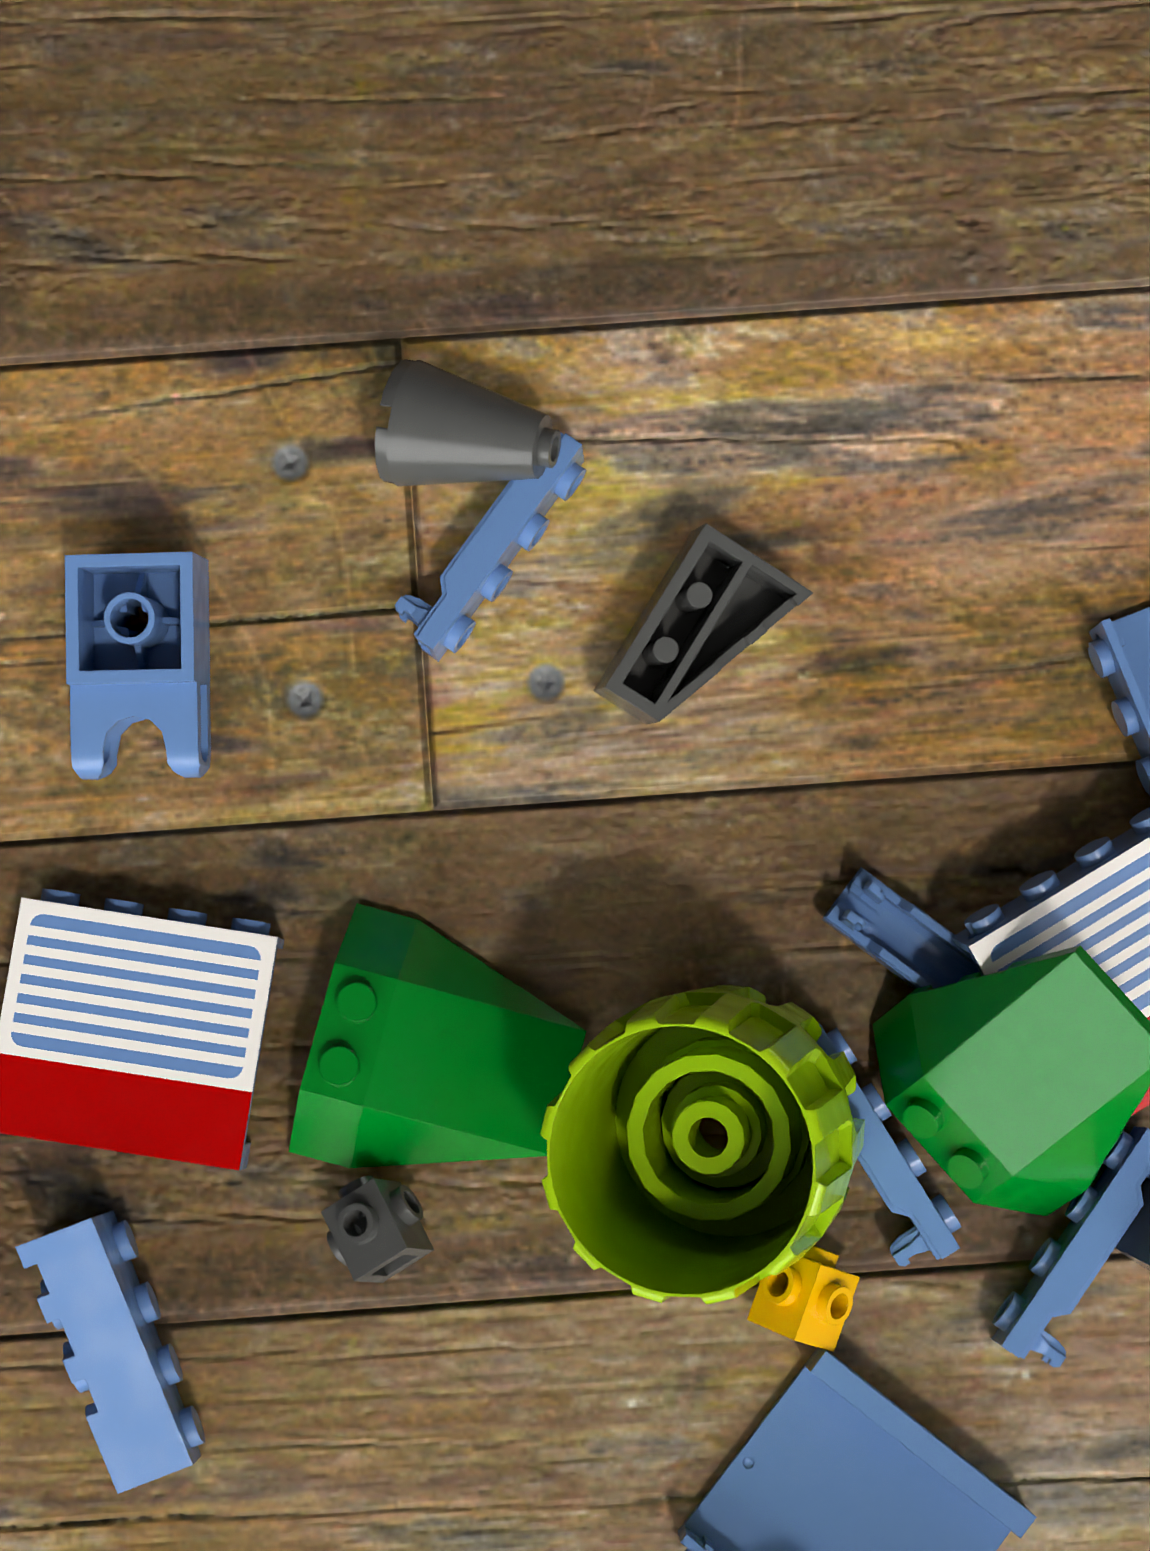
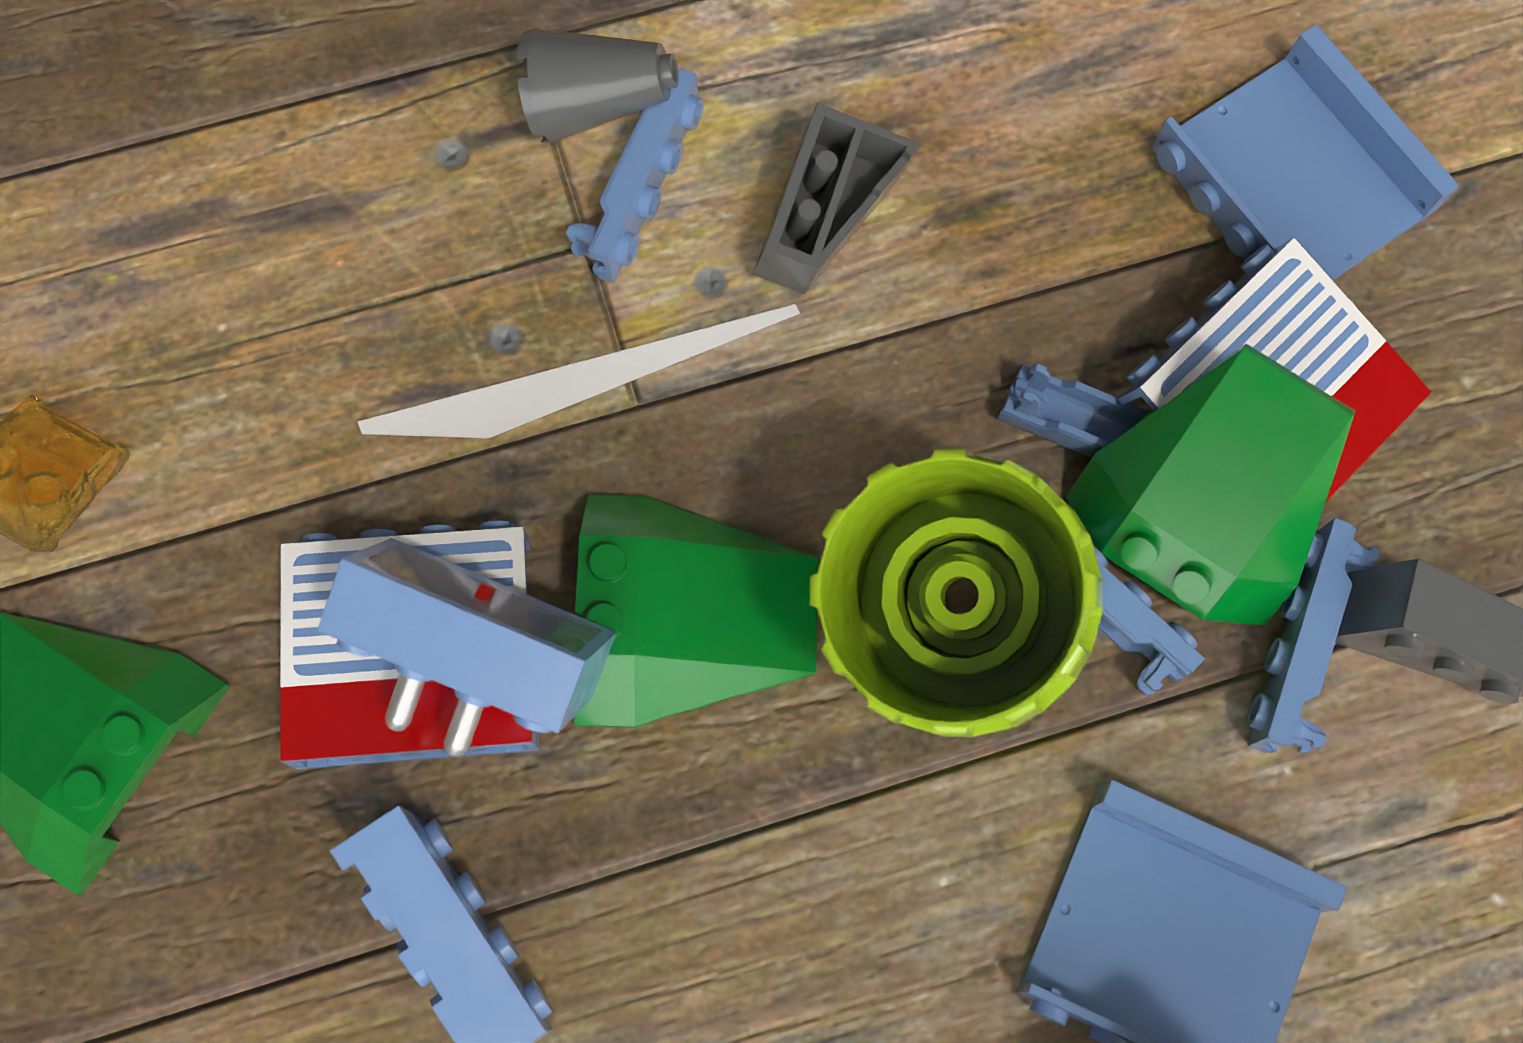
camera: 15 degrees left, 10 degrees down
(135, 676) = (349, 336): medium blue brick -> none
(192, 1061) = (465, 635): none -> medium blue piece
(313, 776) = (525, 399): none -> white sticker
(376, 1229) = (671, 769): dark grey brick -> none
(806, 1300) = (1077, 739): yellow brick -> none

